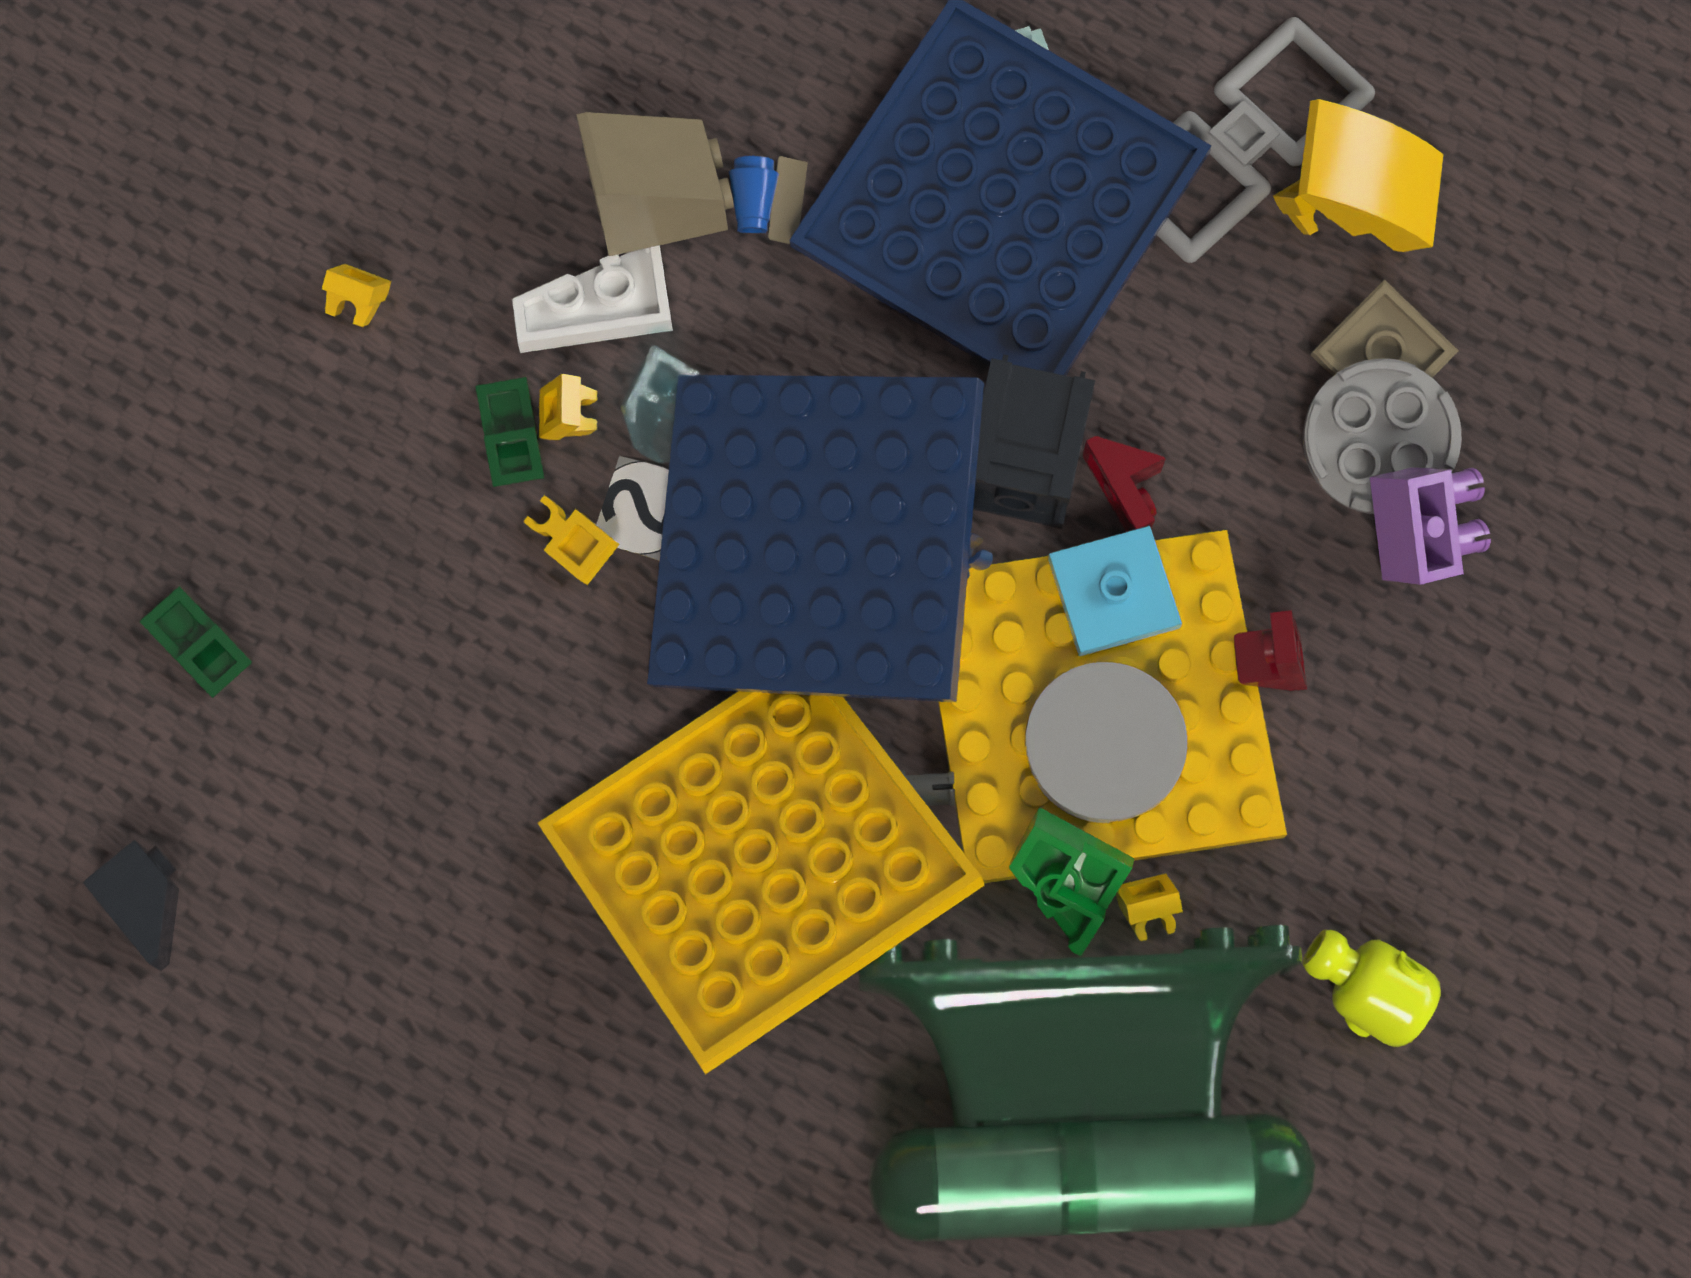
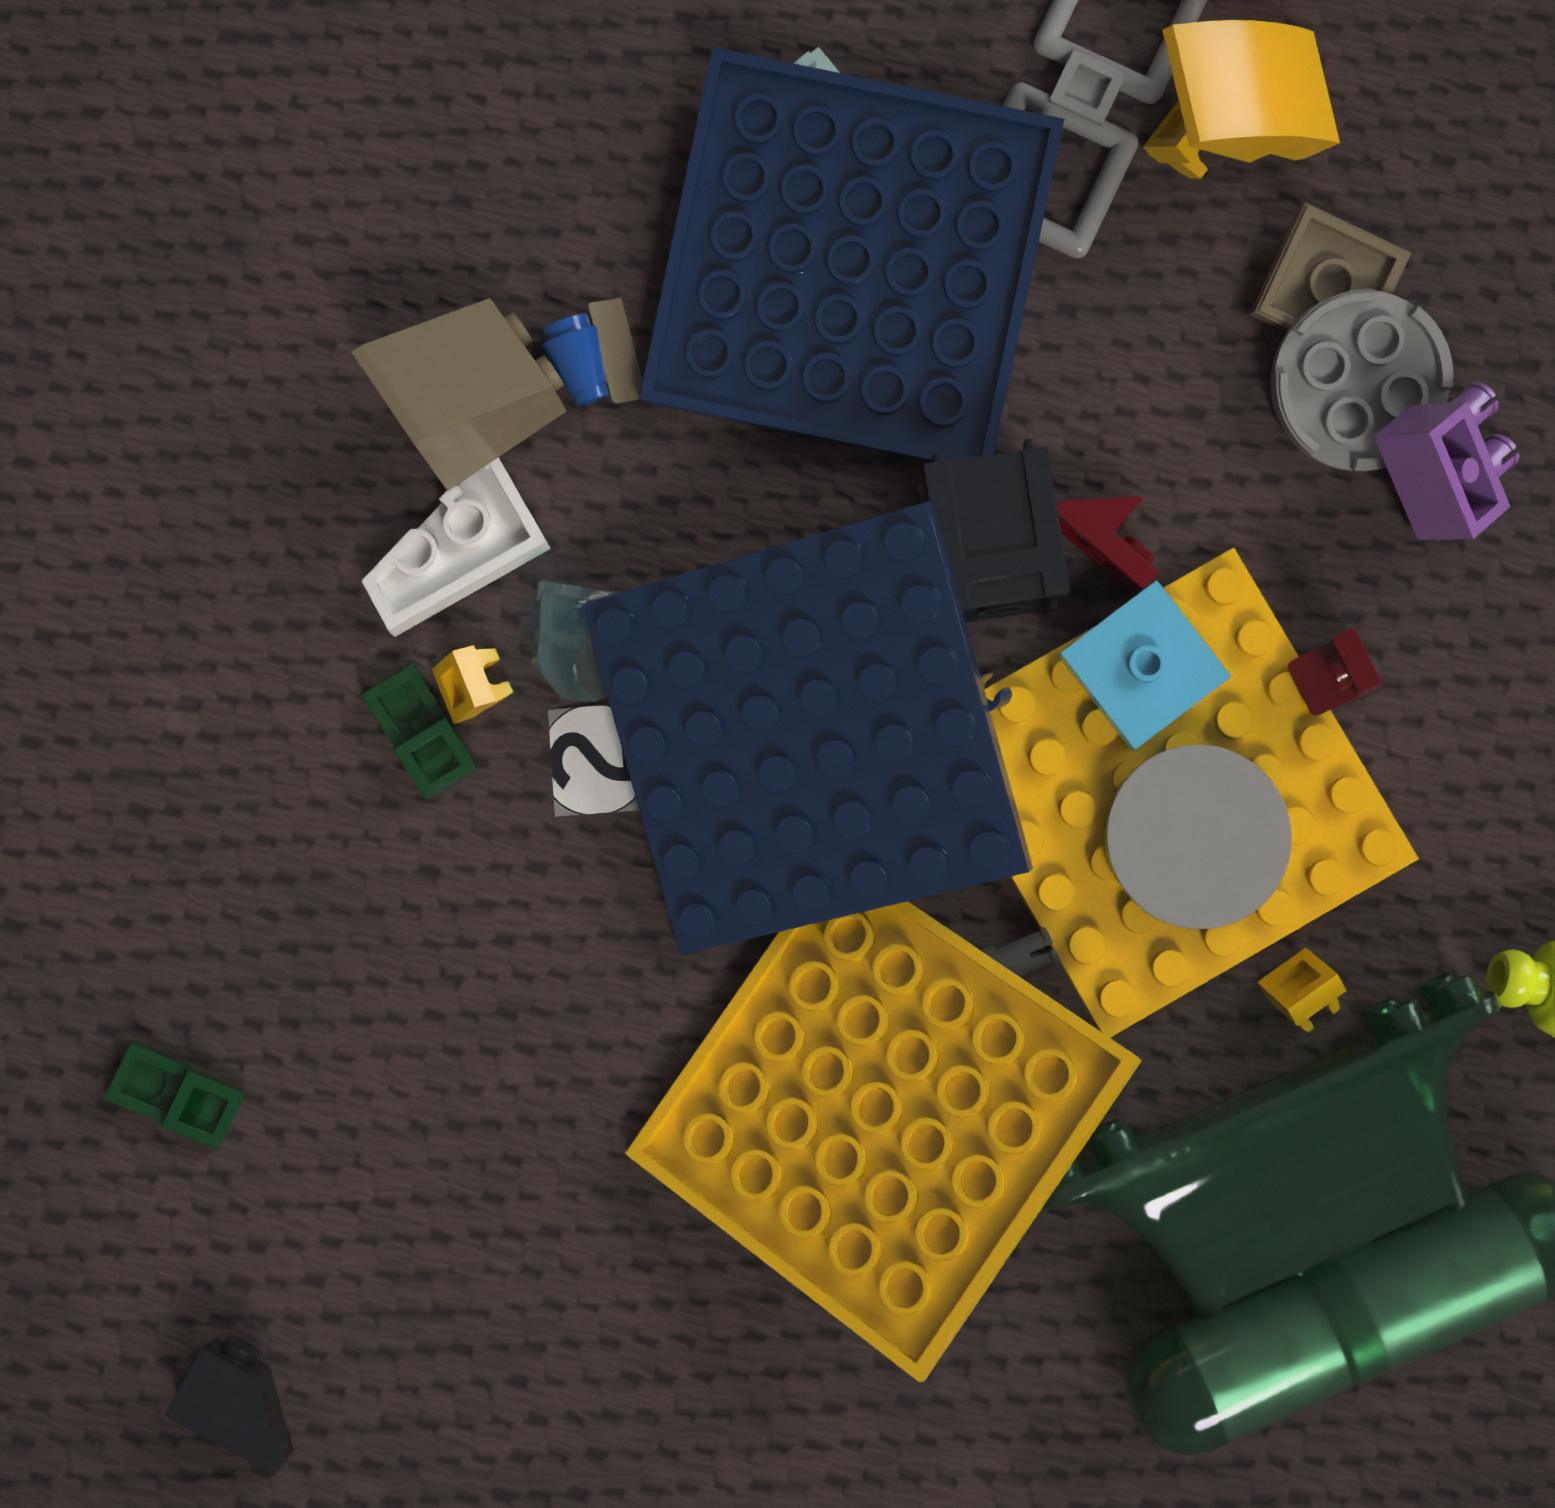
camera: 20 degrees left, 10 degrees up
(357, 286) = (183, 631): yellow tile -> none
(576, 542) = (542, 827): yellow plate -> none
(1069, 875) = (1211, 994): green slope -> none

